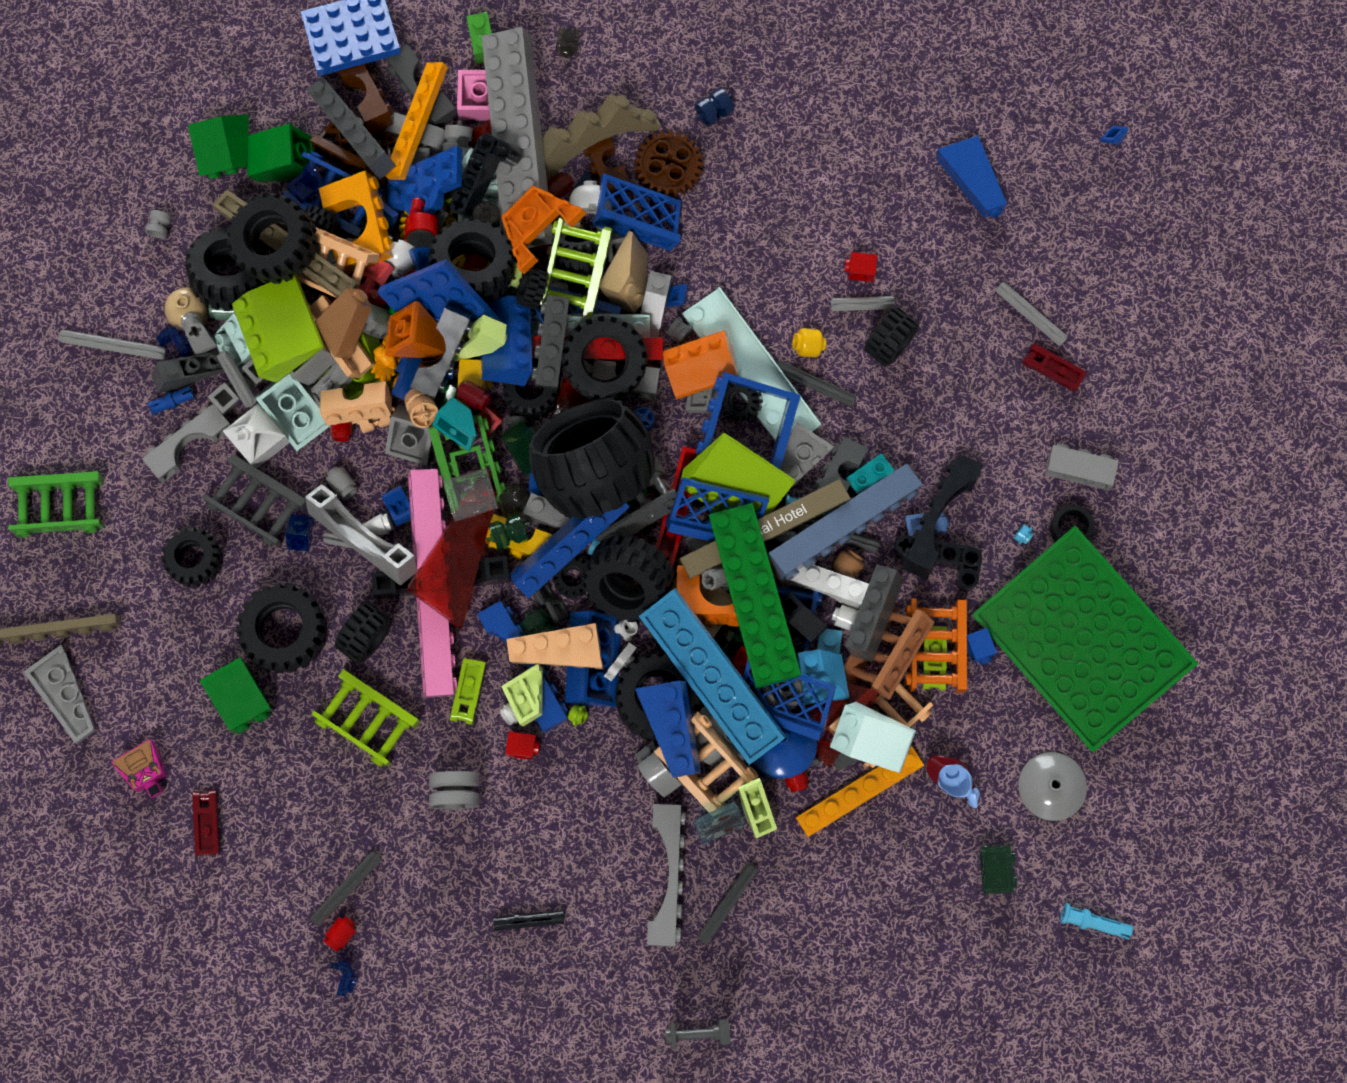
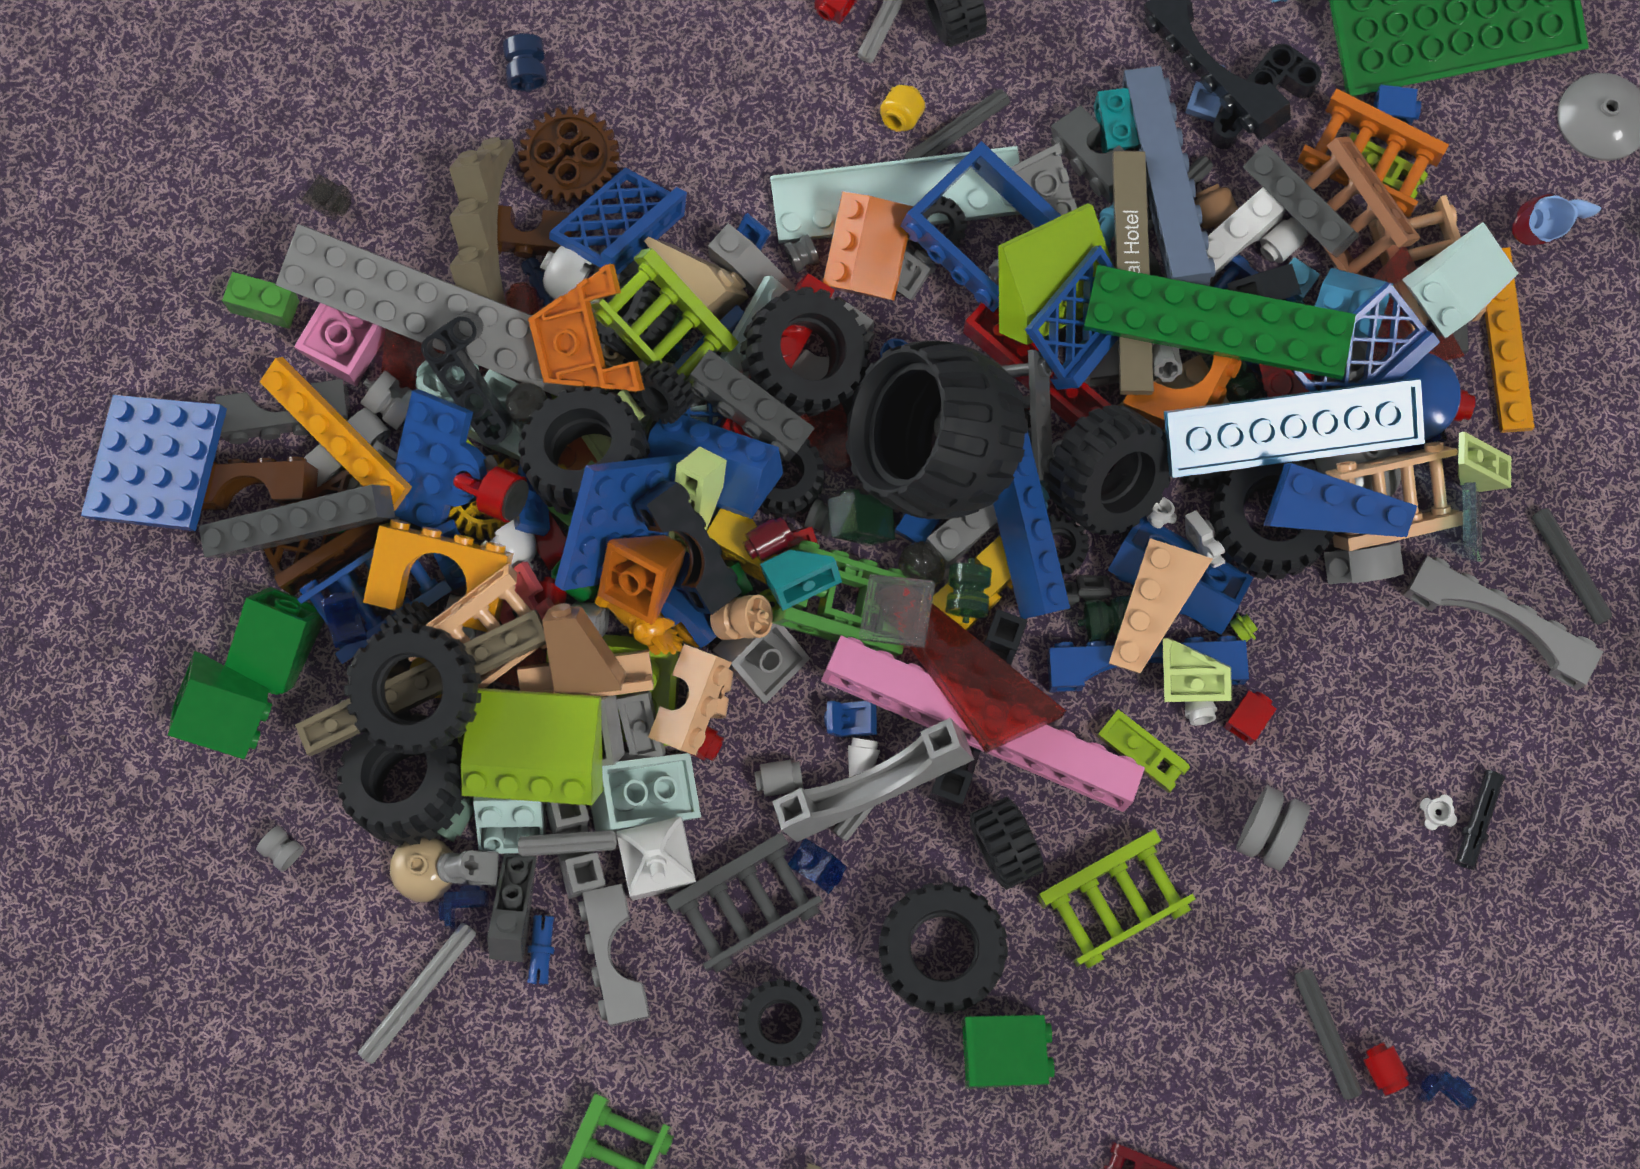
camera: 60 degrees left, 0 degrees up
(514, 892) = (1447, 815): none -> white plate

